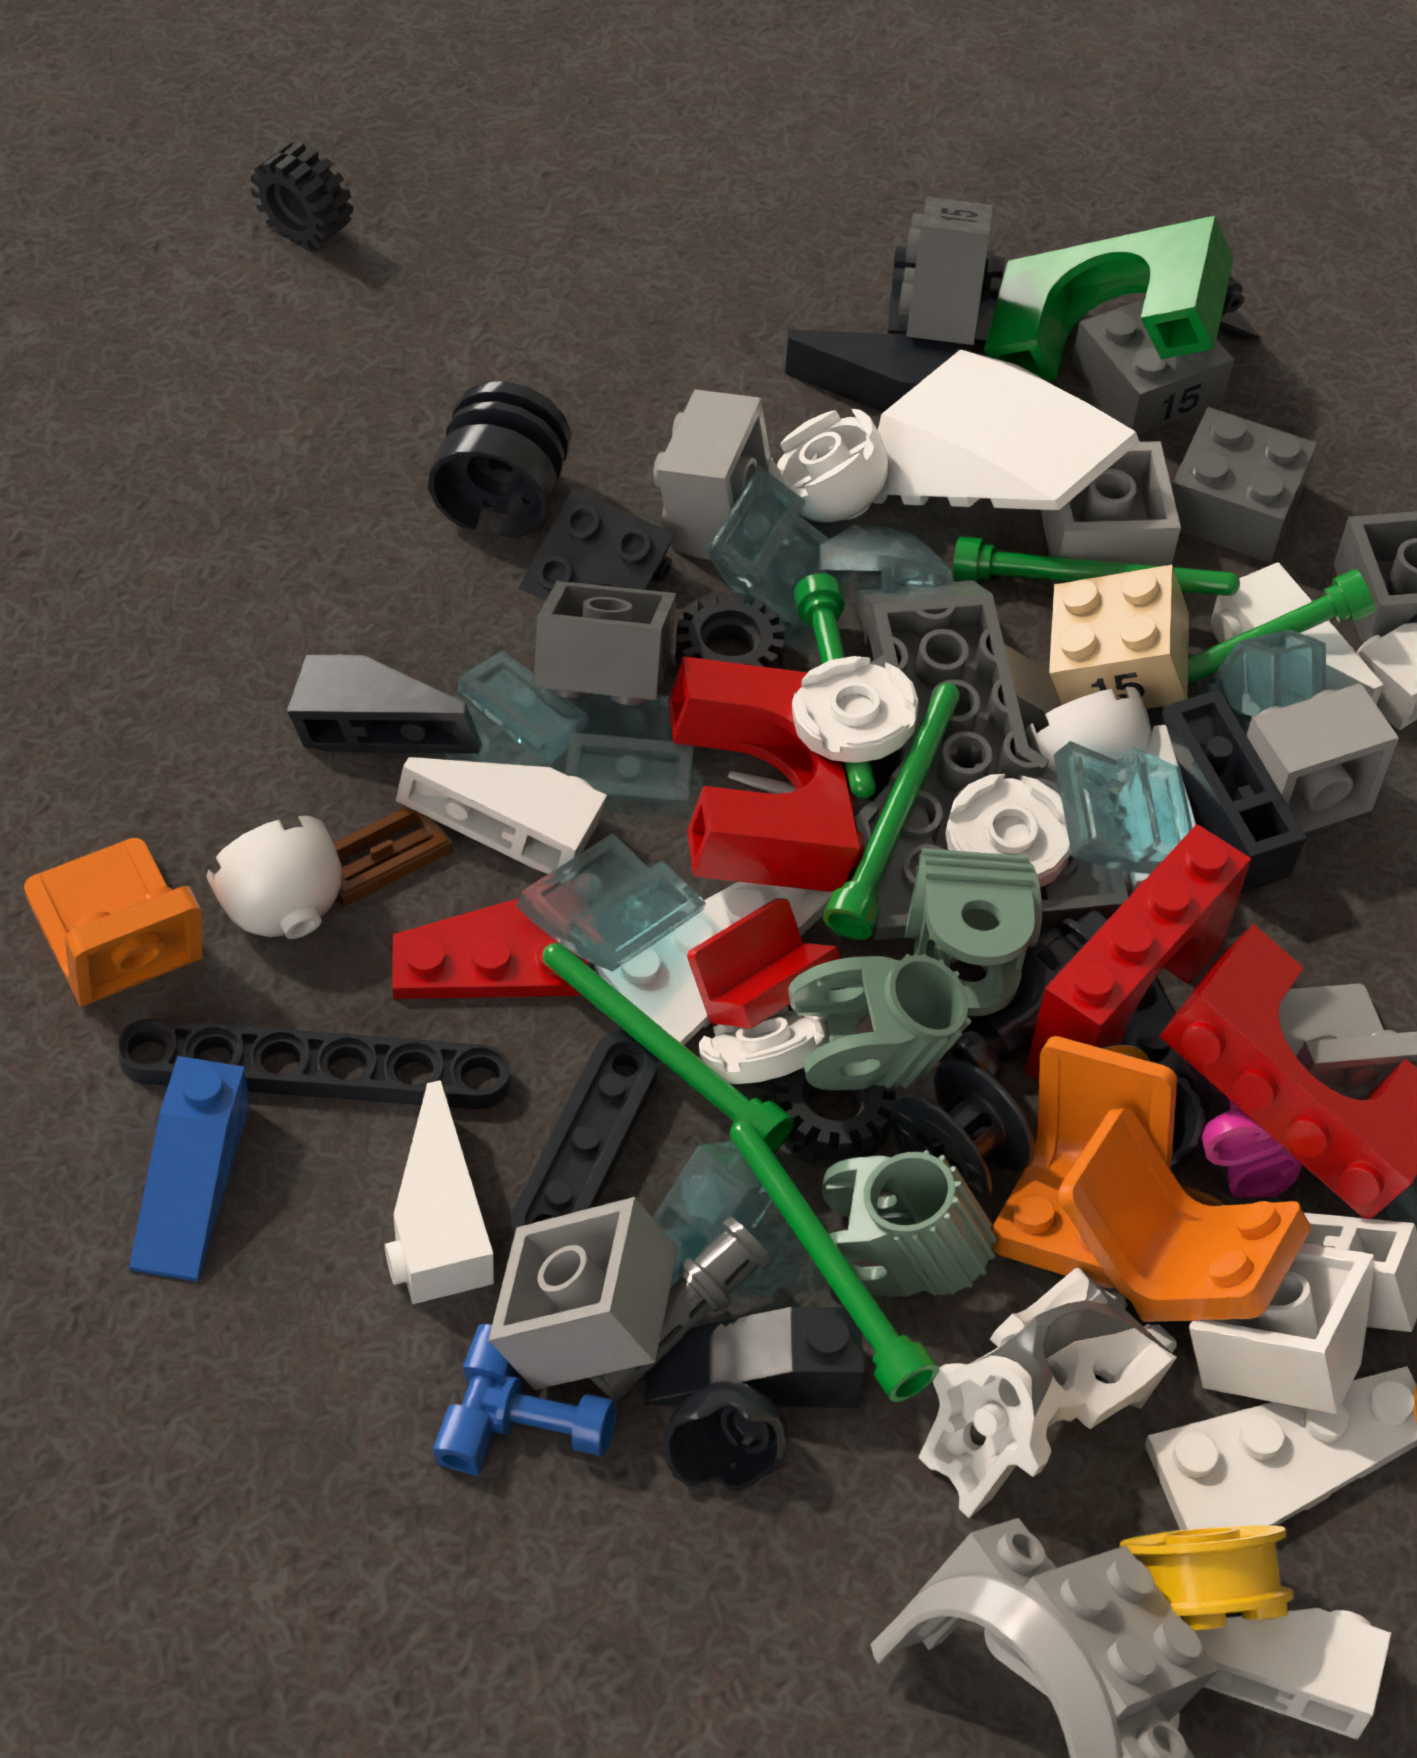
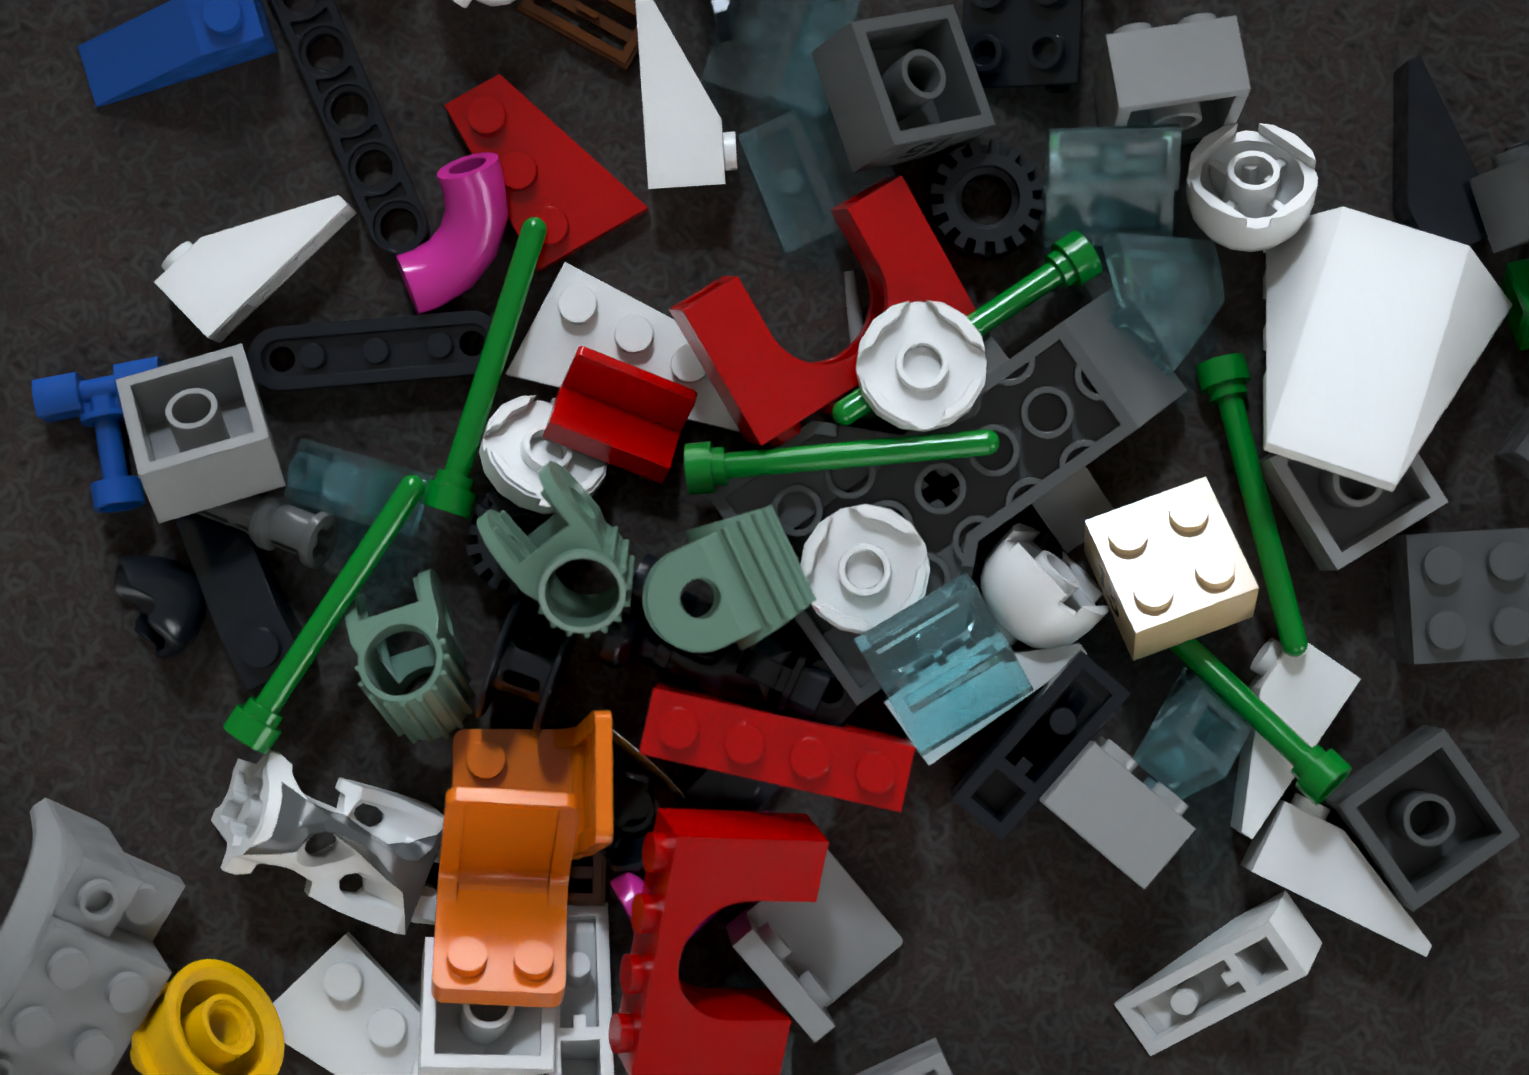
camera: 65 degrees right, 35 degrees up
(527, 1020) = (467, 235): none -> dark pink cylinder
(609, 904) = (617, 248): clear light blue slope -> none

